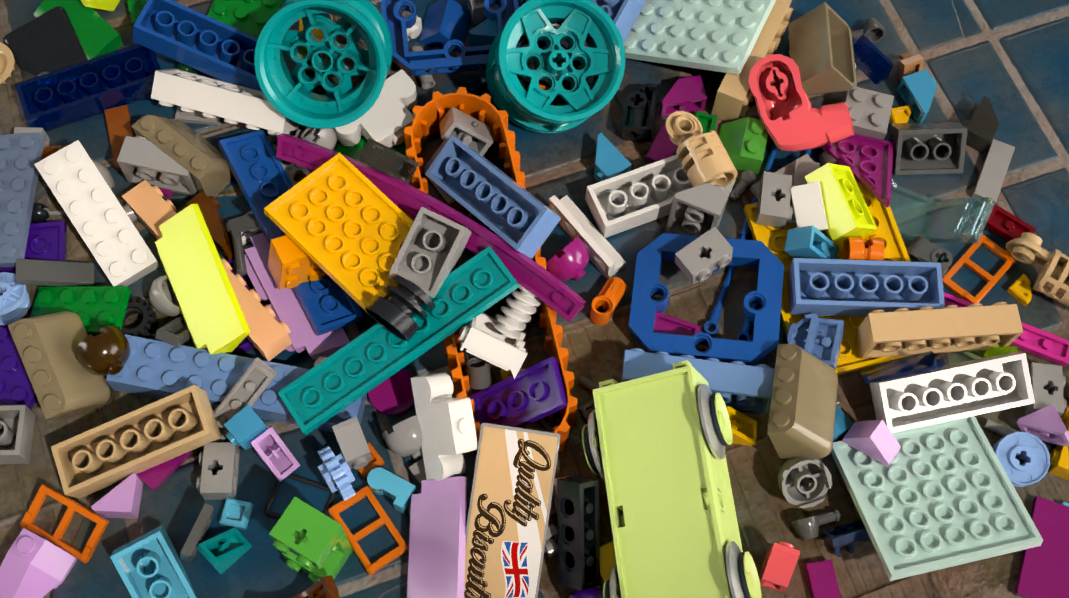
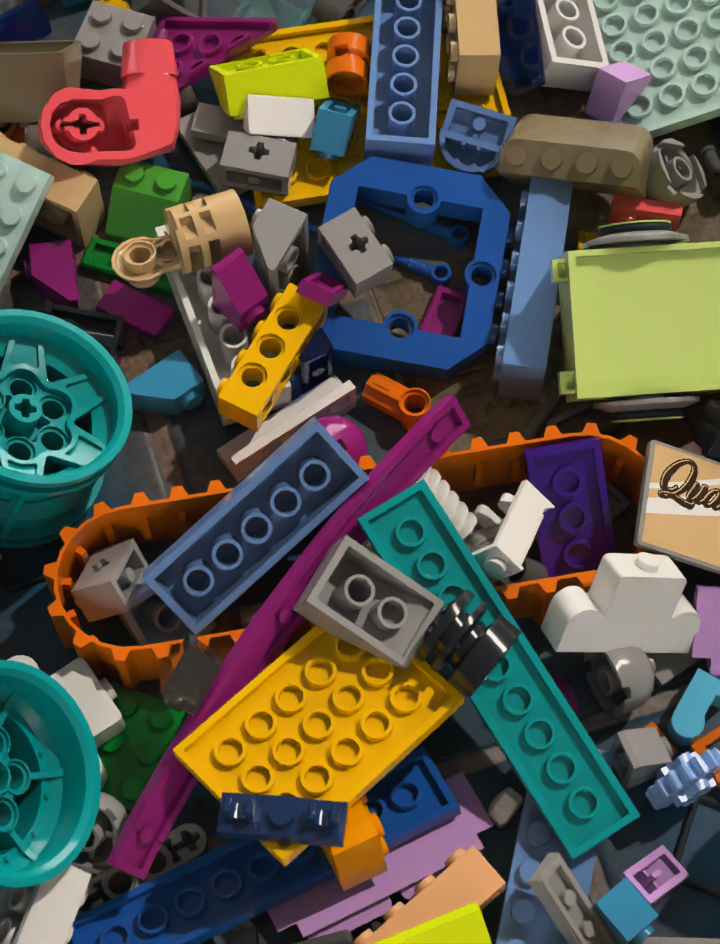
camera: 85 degrees left, 0 degrees up
(288, 206) = (282, 819): none -> dark blue plate
(628, 220) = (252, 404): none -> yellow brick
(628, 243) = (316, 361): none -> clear blue slope
(663, 183) = (238, 291): none -> magenta slope
(669, 232) = (322, 289): none -> magenta tile
(771, 473) = (635, 209): none -> coral plate

